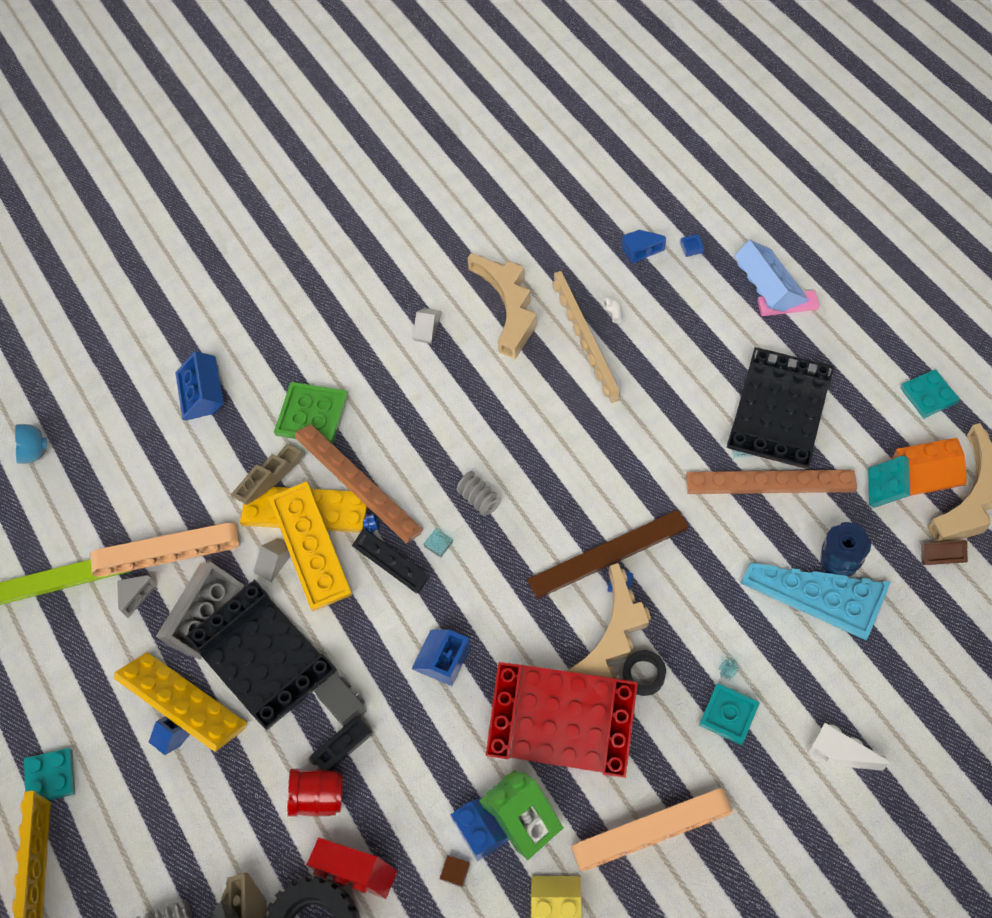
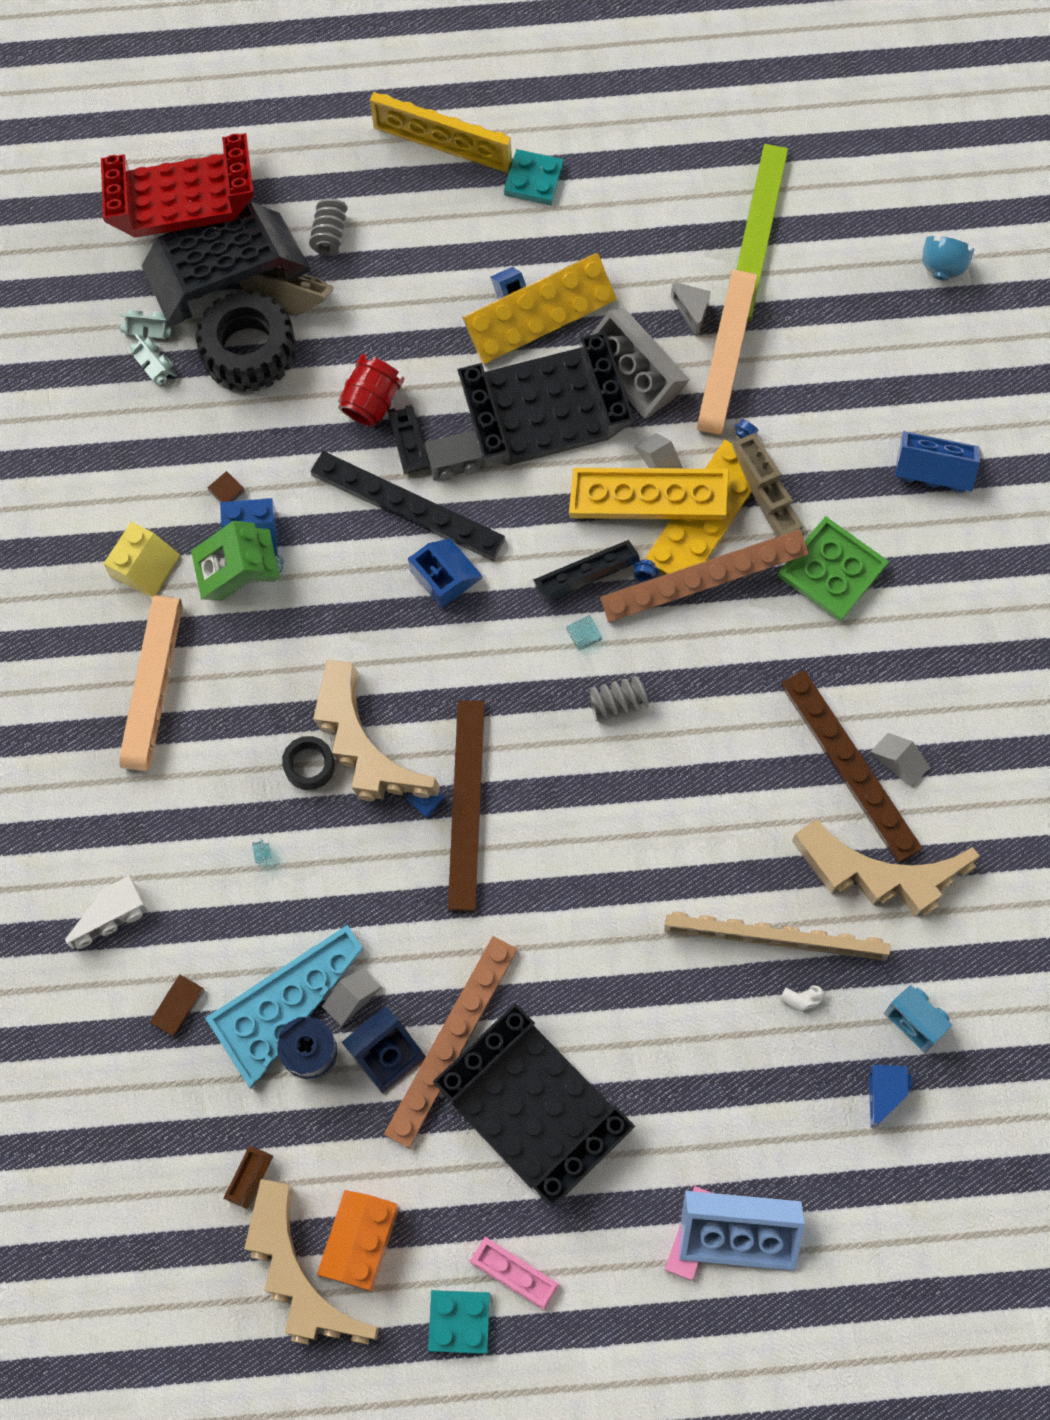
camera: 115 degrees right, 10 degrees up
(226, 511) = (745, 428): none -> blue plate
(351, 867) = (278, 395): red wedge -> none
(398, 721) = (408, 505): none -> black plate
(445, 349) = (851, 767): none -> reddish brown plate
(562, 718) = (306, 645): red slope -> none
(589, 244) = (918, 1018): none -> dark azure slope
(692, 245) = (852, 1161): blue plate -> none
(729, 714) = (215, 823): teal plate -> none
(785, 554) = (351, 996): none -> light grey slope
(806, 516) = (384, 1049): none -> dark blue slope
(871, 665) = (176, 1005): none -> reddish brown tile
(880, 380) = (514, 1273): none -> bright pink tile
(889, 481) = (364, 1168): teal plate -> none

